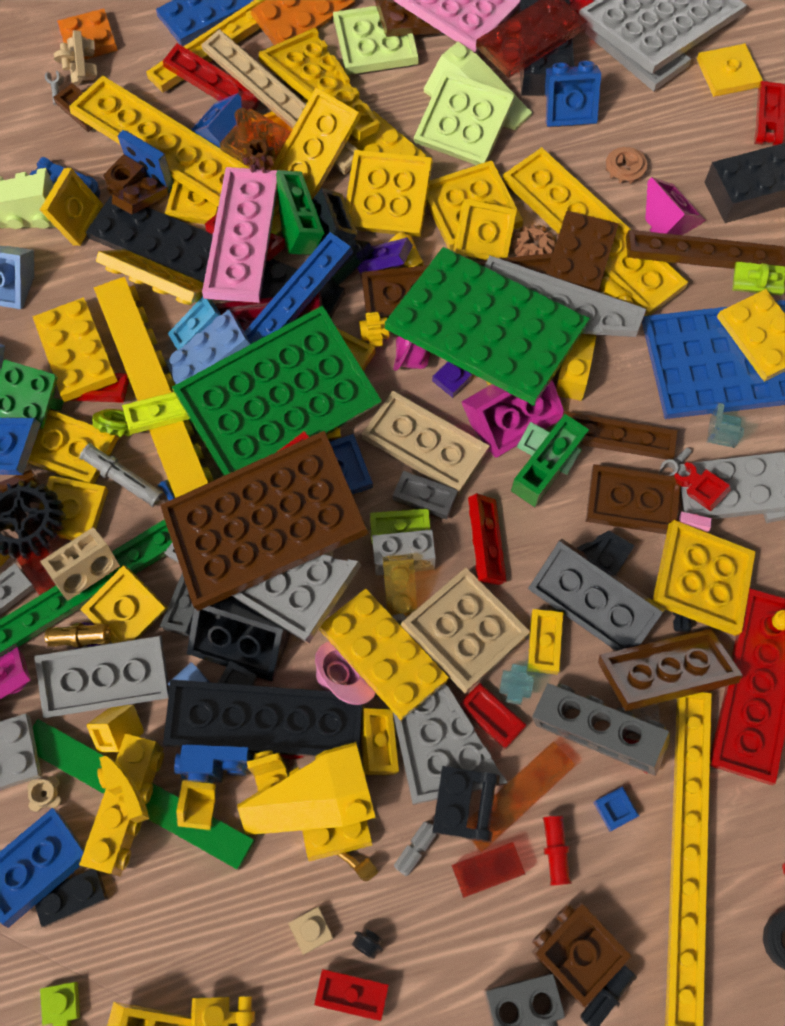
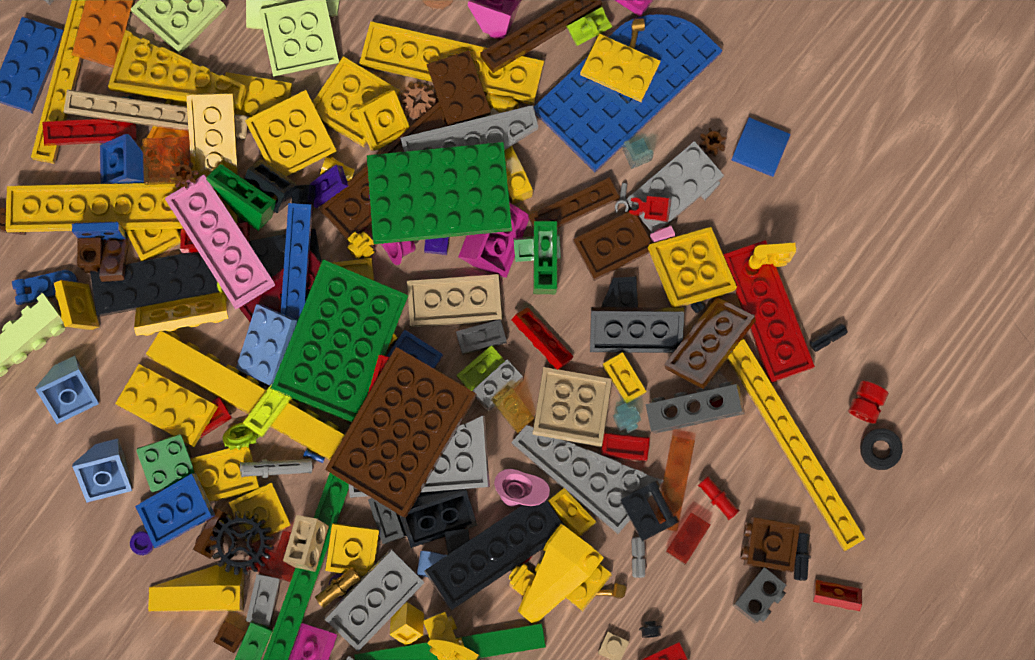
camera: 40 degrees left, 10 degrees up
(194, 322) = (236, 329): dark azure plate -> none
(196, 805) = (495, 629): yellow panel -> none
(207, 763) = (481, 604): blue plate -> none
(383, 654) = (535, 458): yellow plate -> none
(616, 809) = (735, 448): blue tile -> none

